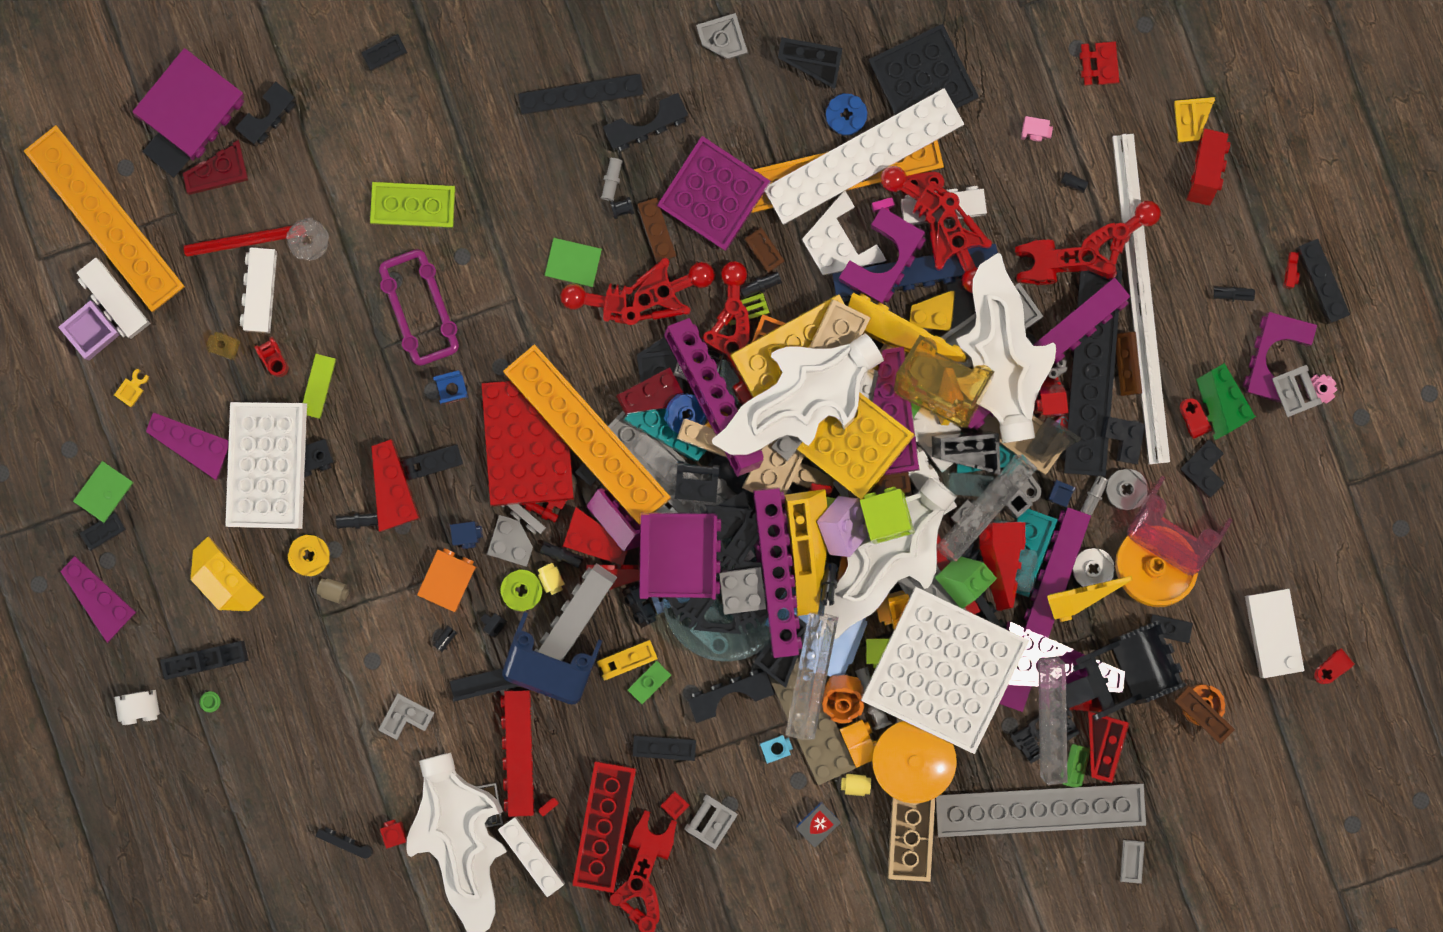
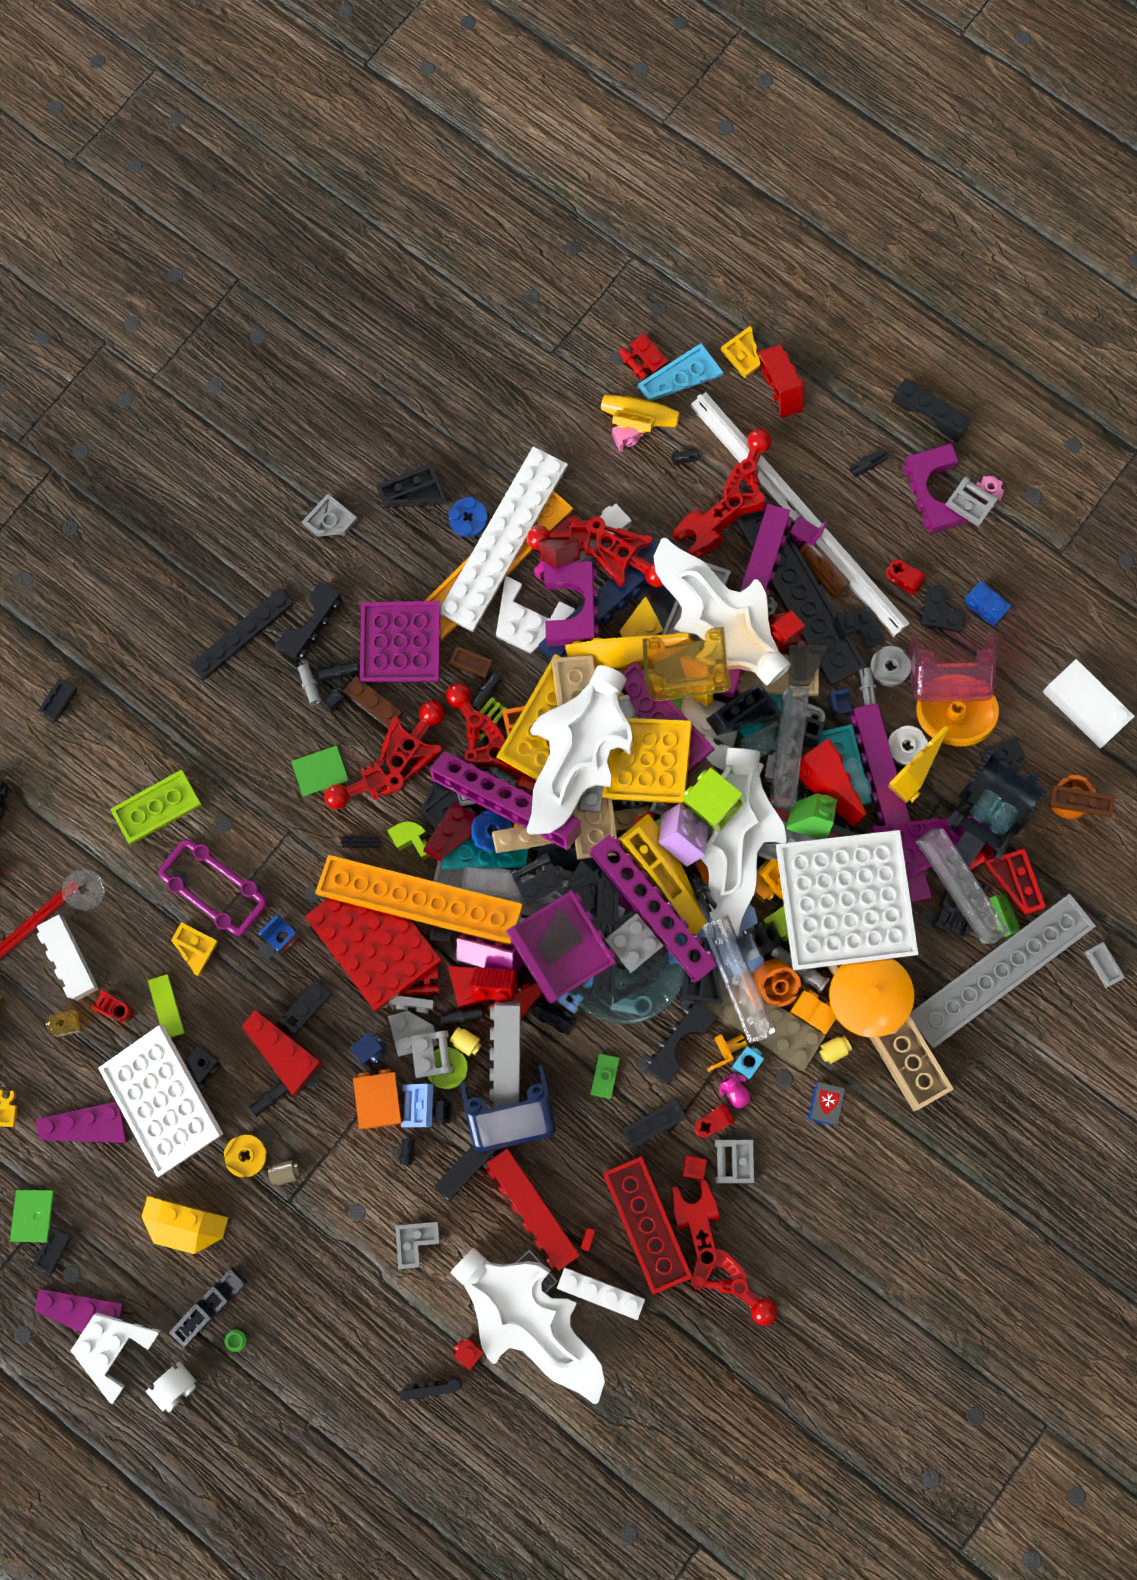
camera: 30 degrees left, 10 degrees down
(99, 635) = (102, 1344): none -> white wing
(372, 349) = (194, 947): none -> yellow wing
(477, 607) = (417, 1105): none -> light blue plate
(509, 568) = (424, 1054): none -> light grey plate
(569, 348) = (360, 842): none -> black axle
(603, 549) = (493, 984): none -> red brick
(613, 368) = (407, 834): none -> lime brick
(628, 659) = (574, 1068): yellow plate -> none
(644, 183) = (338, 671): none -> black pin
(682, 547) = (559, 937): none -> clear smoke wing
(719, 778) = (716, 1119): none -> red piece
(750, 766) = (736, 1092): none -> dark pink animal
(767, 725) = (727, 1048): none -> light orange bracket
(850, 655) = (759, 940): none -> black brick
(901, 205) = (559, 552): none -> dark red slope
(921, 69) = (504, 446): black plate -> none
(1057, 117) = (638, 413): none -> yellow plate
(1123, 102) = (684, 372): none -> medium azure wing
(1125, 675) = (994, 812): none -> clear light blue brick
(1134, 323) = (806, 531): none -> magenta bracket
(1224, 401) = (920, 546): green wedge -> none
(1248, 488) = (987, 603): none -> blue brick
(1291, 275) = (902, 420): red plate -> none

